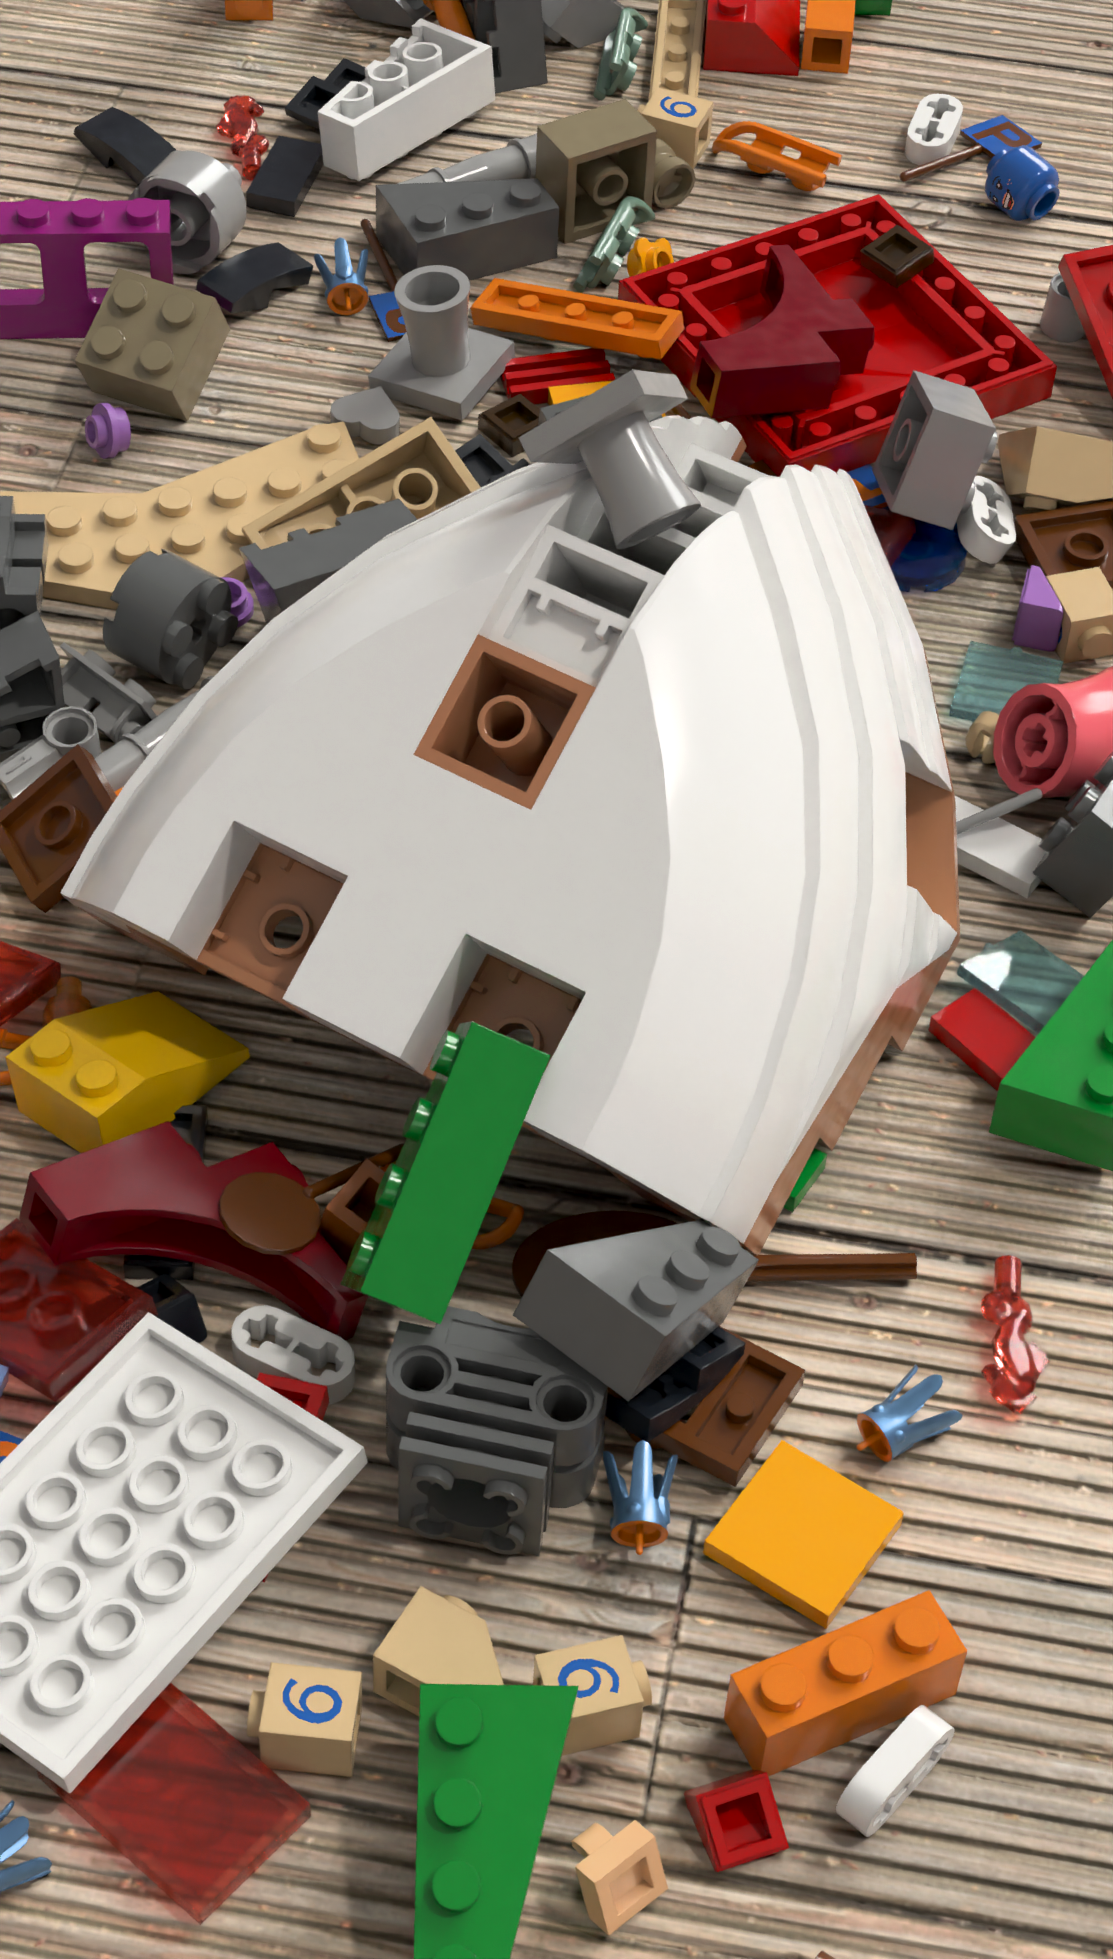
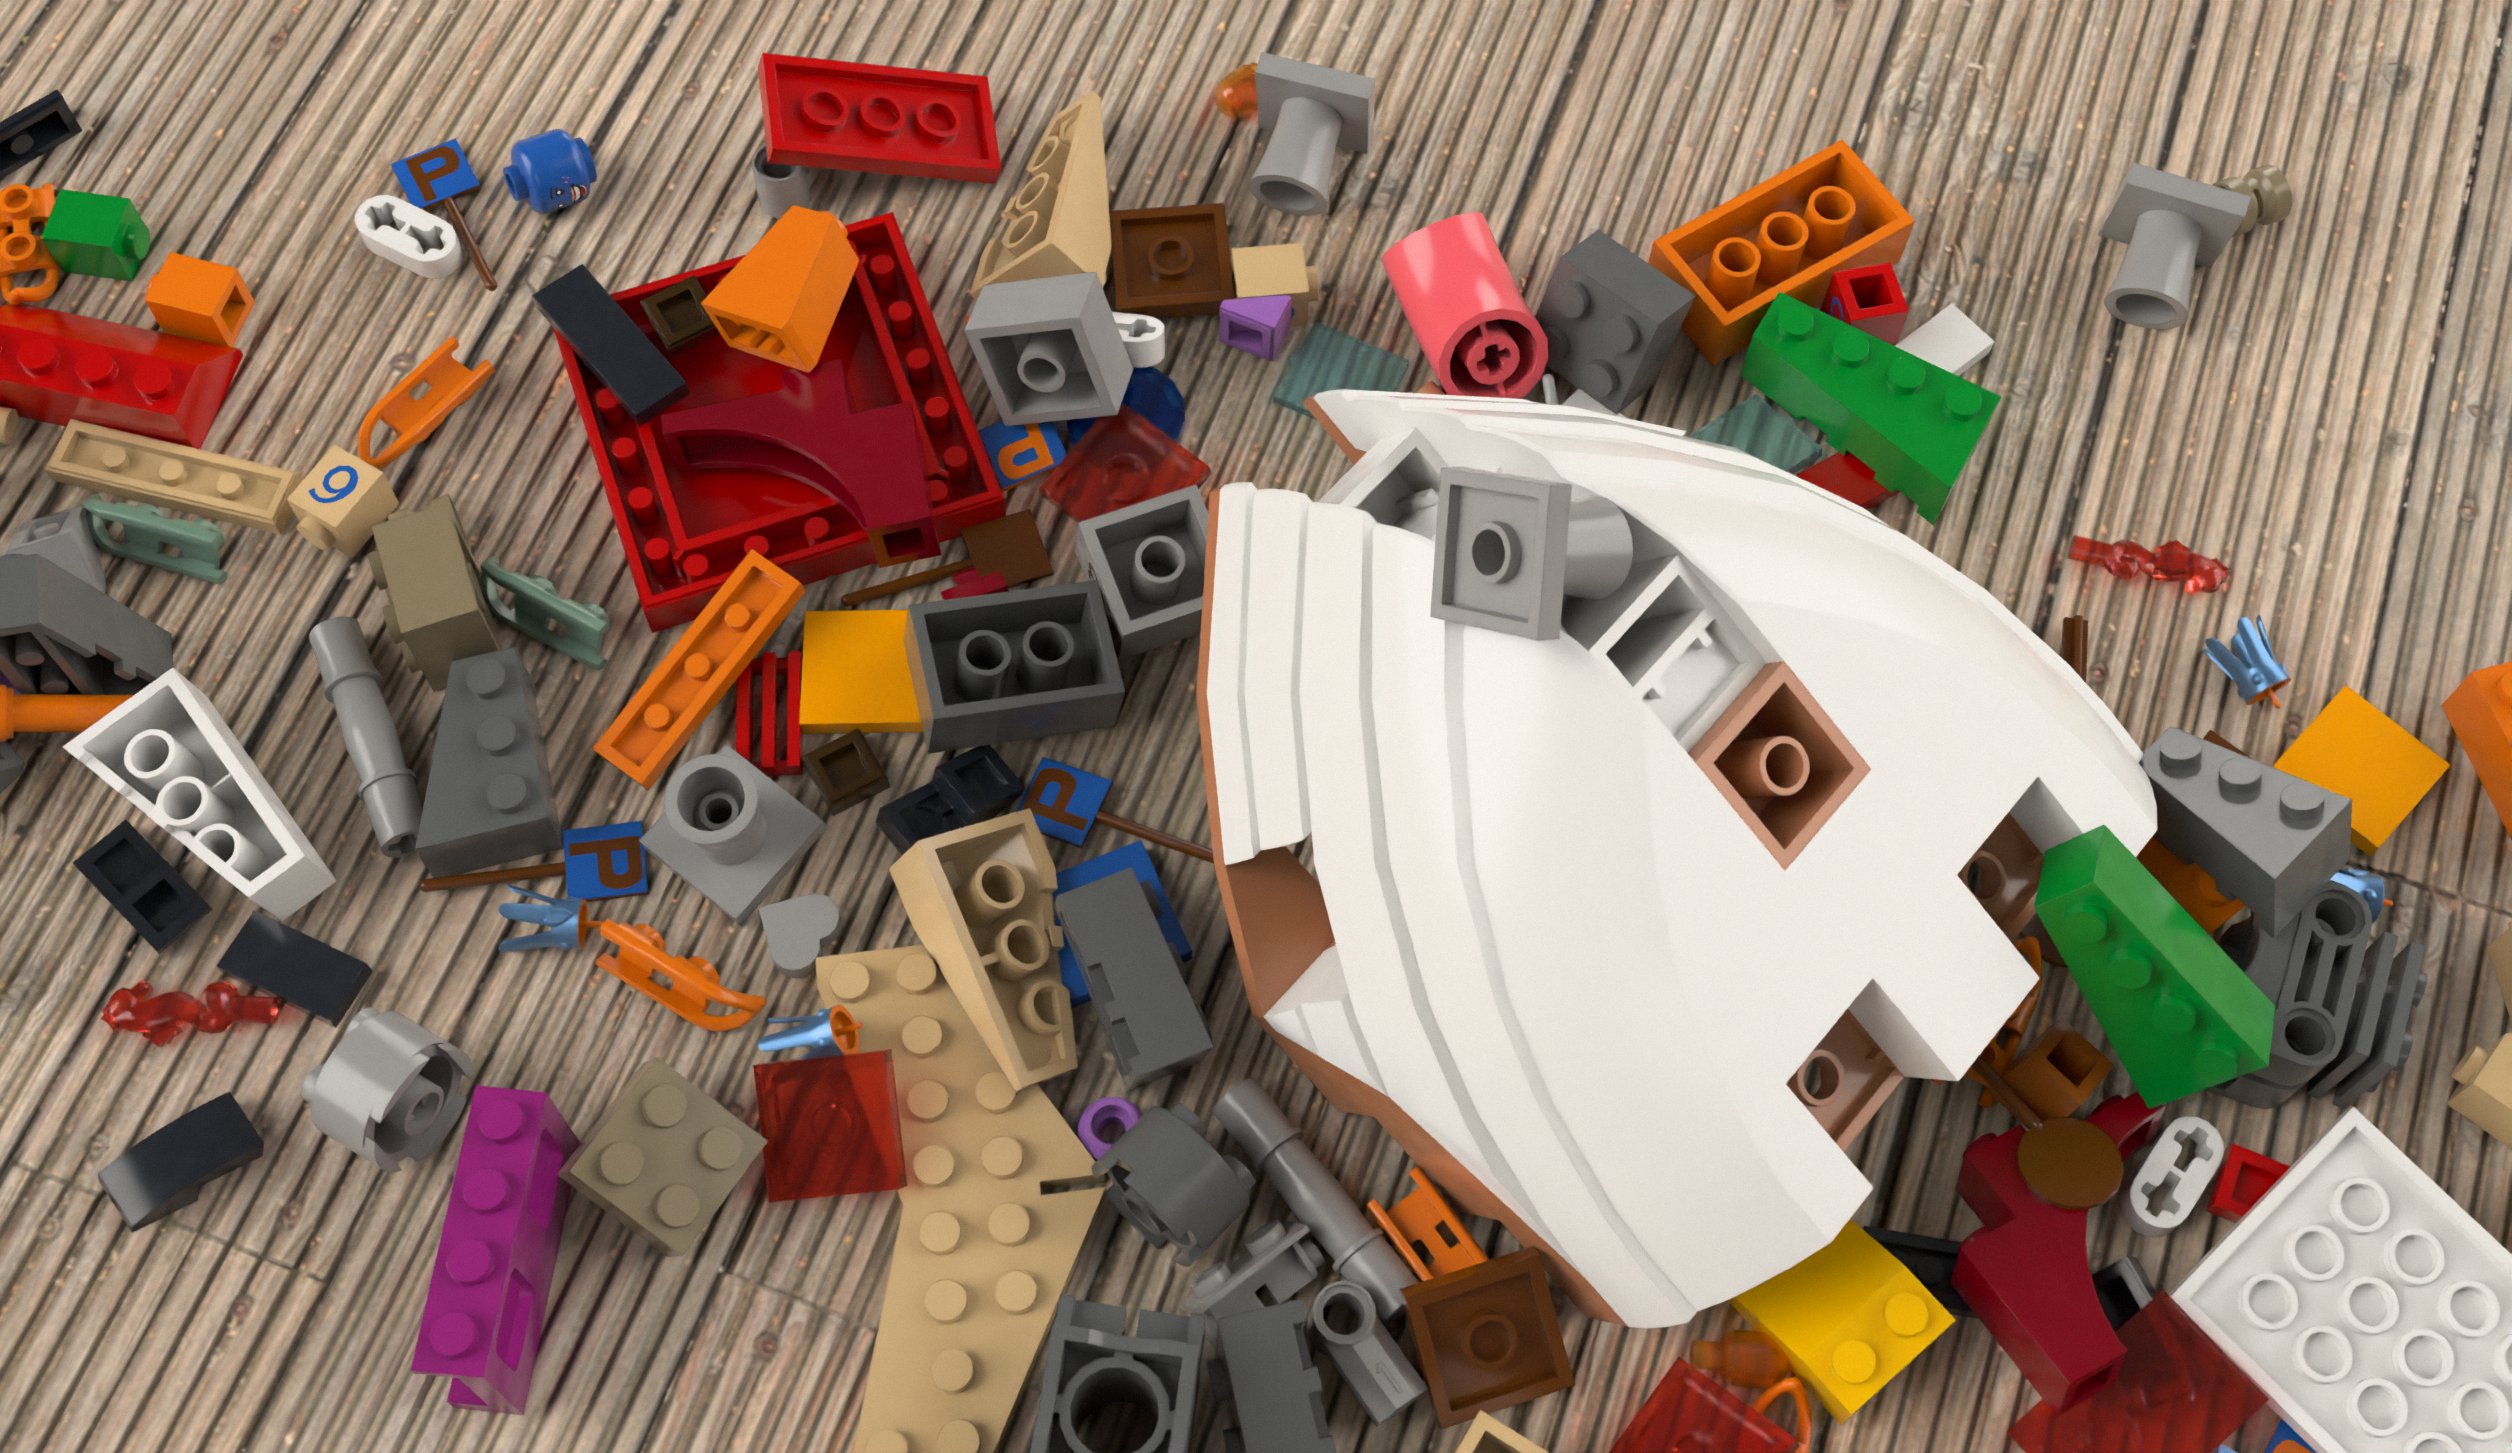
camera: 80 degrees left, 15 degrees up
(108, 430) = (779, 1235): medium lavender plate -> none
(195, 433) = (830, 1125): none -> clear red tile
(250, 276) = (509, 1028): black slope -> none
(270, 422) = (828, 1032): none -> flat silver piece
(309, 356) = (693, 978): none -> orange piece
(648, 255) = (602, 575): light orange plate -> none
(854, 221) = (611, 345): none -> black tile
(933, 289) = (786, 289): none -> orange slope

